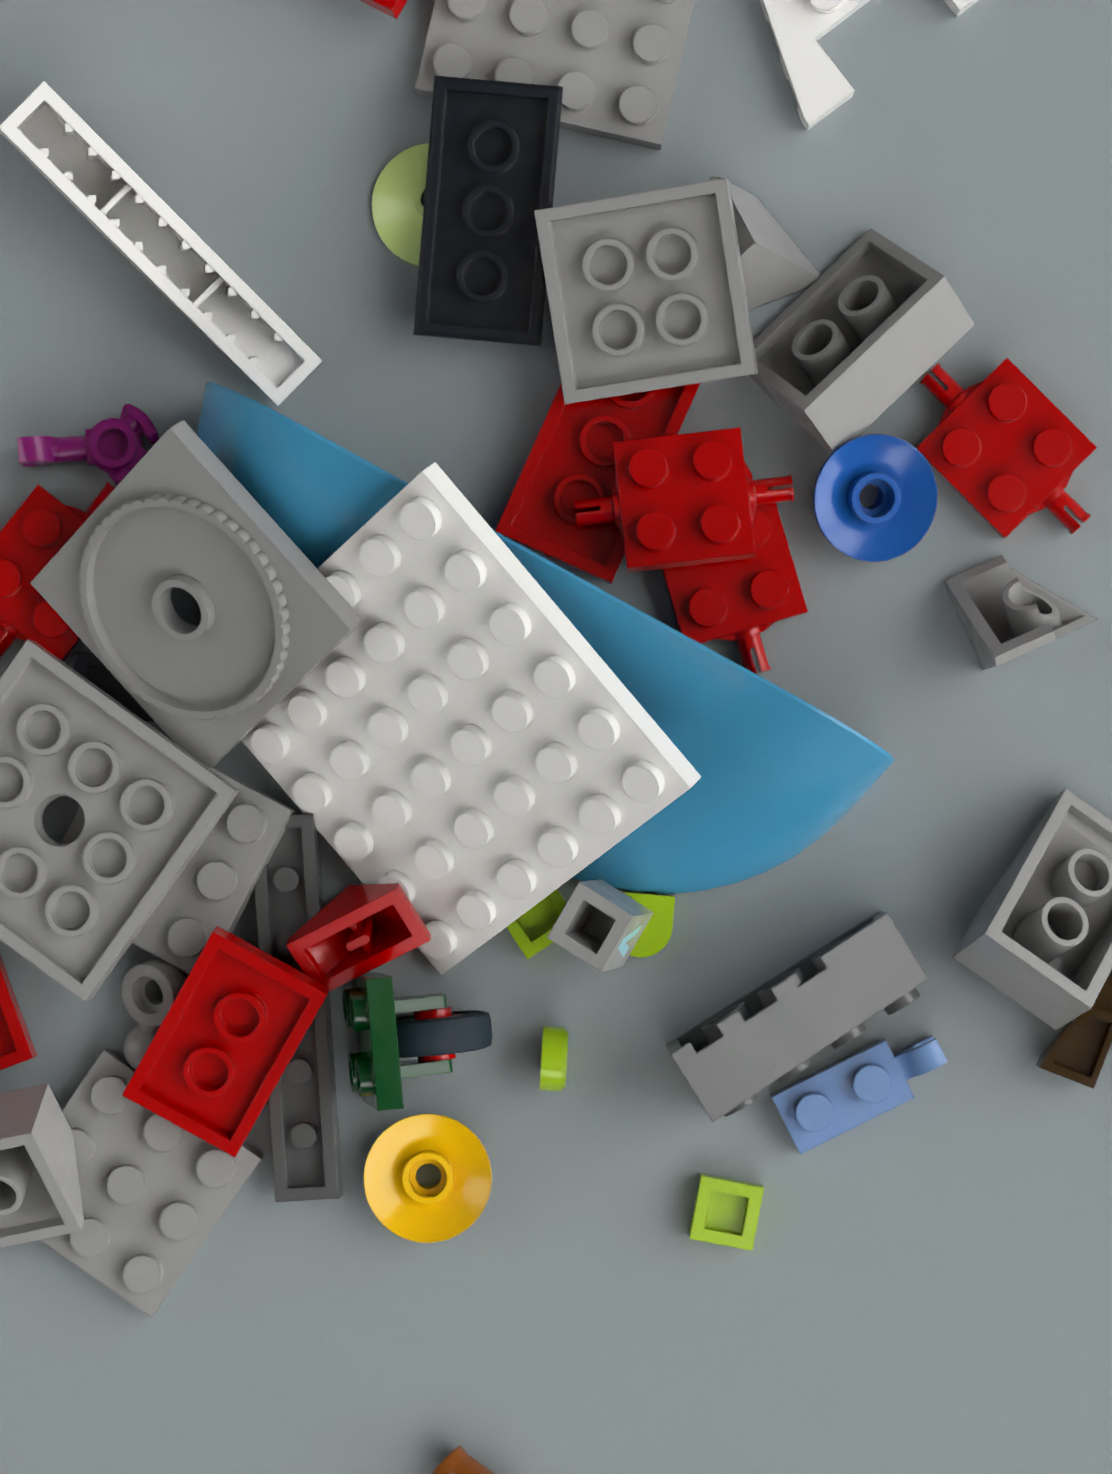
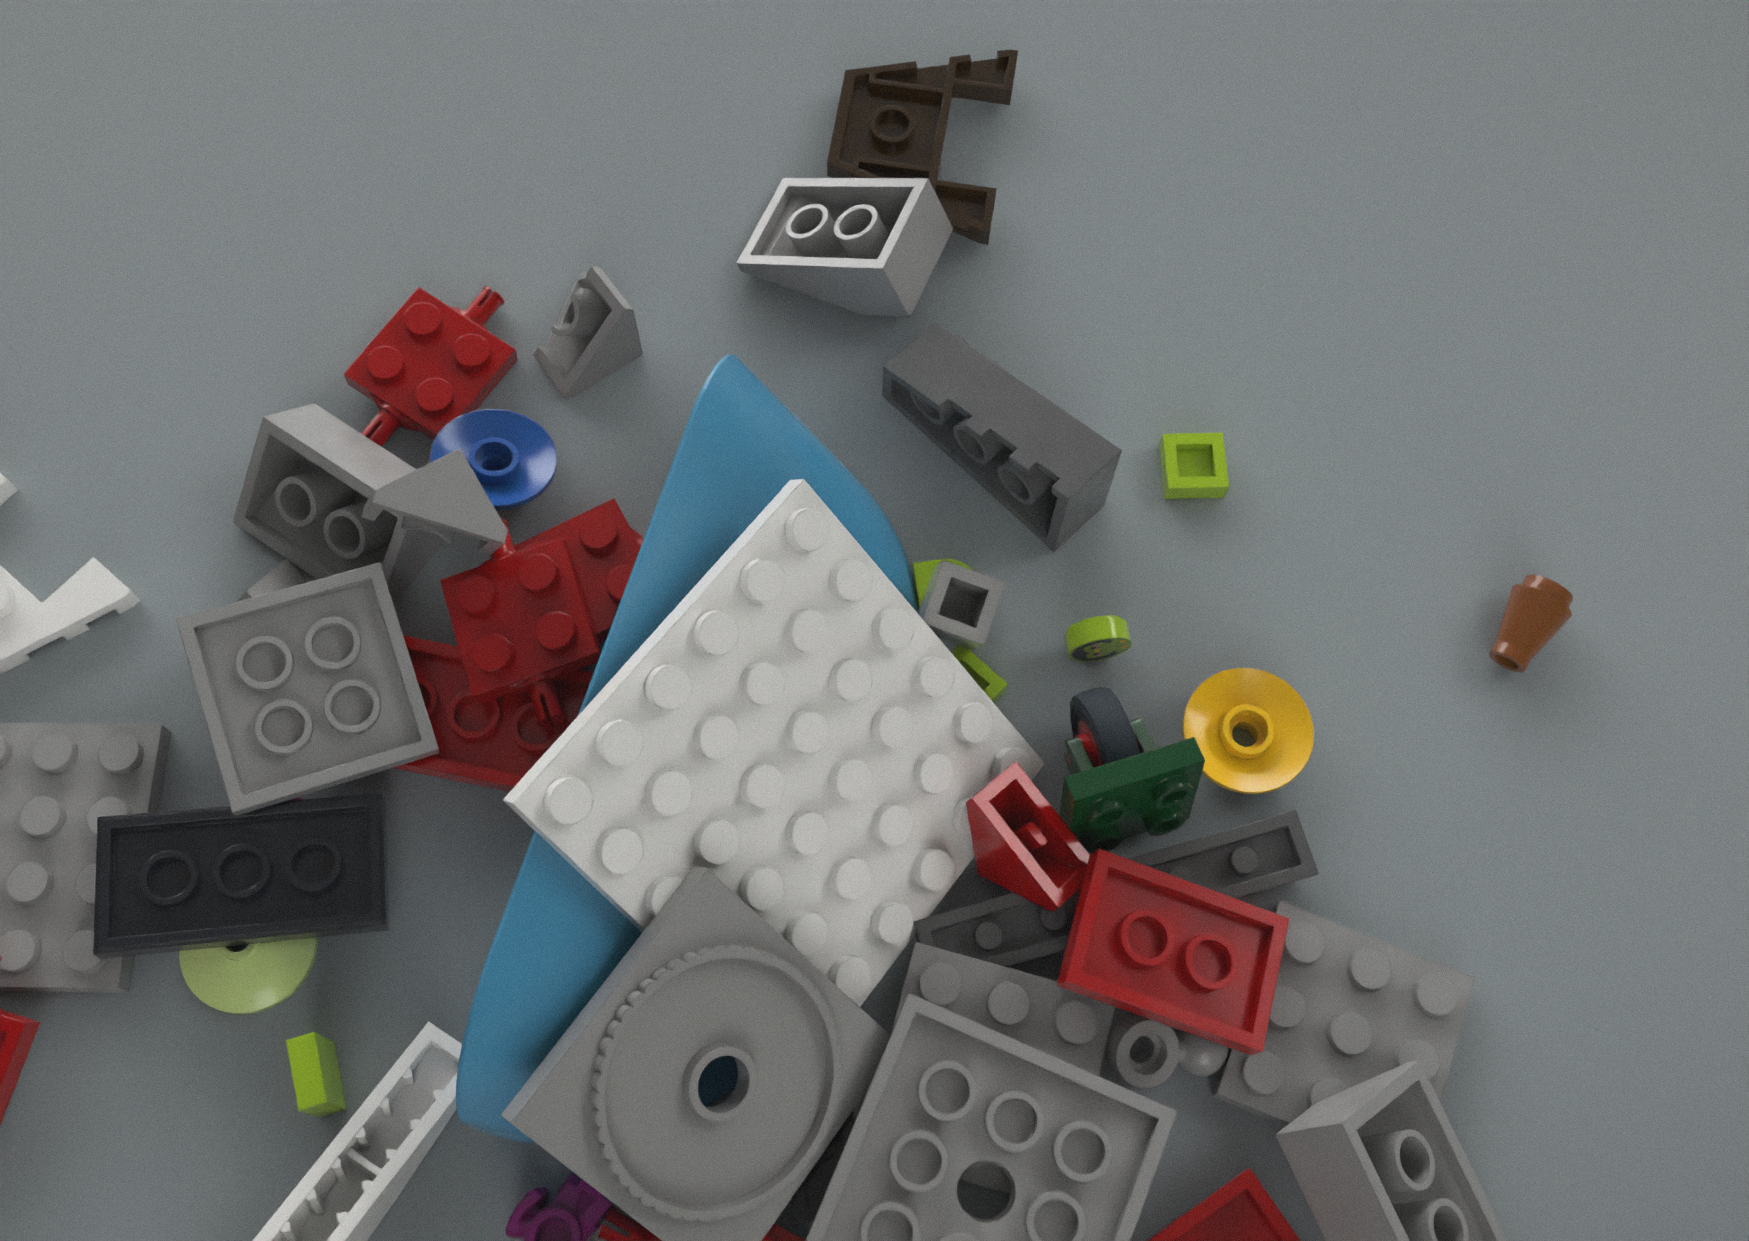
camera: 100 degrees left, 20 degrees down
(295, 257) = (316, 1075): none -> lime tile
(804, 438) = (442, 501): none -> light grey slope
(853, 1090) = (1050, 369): medium blue plate -> none

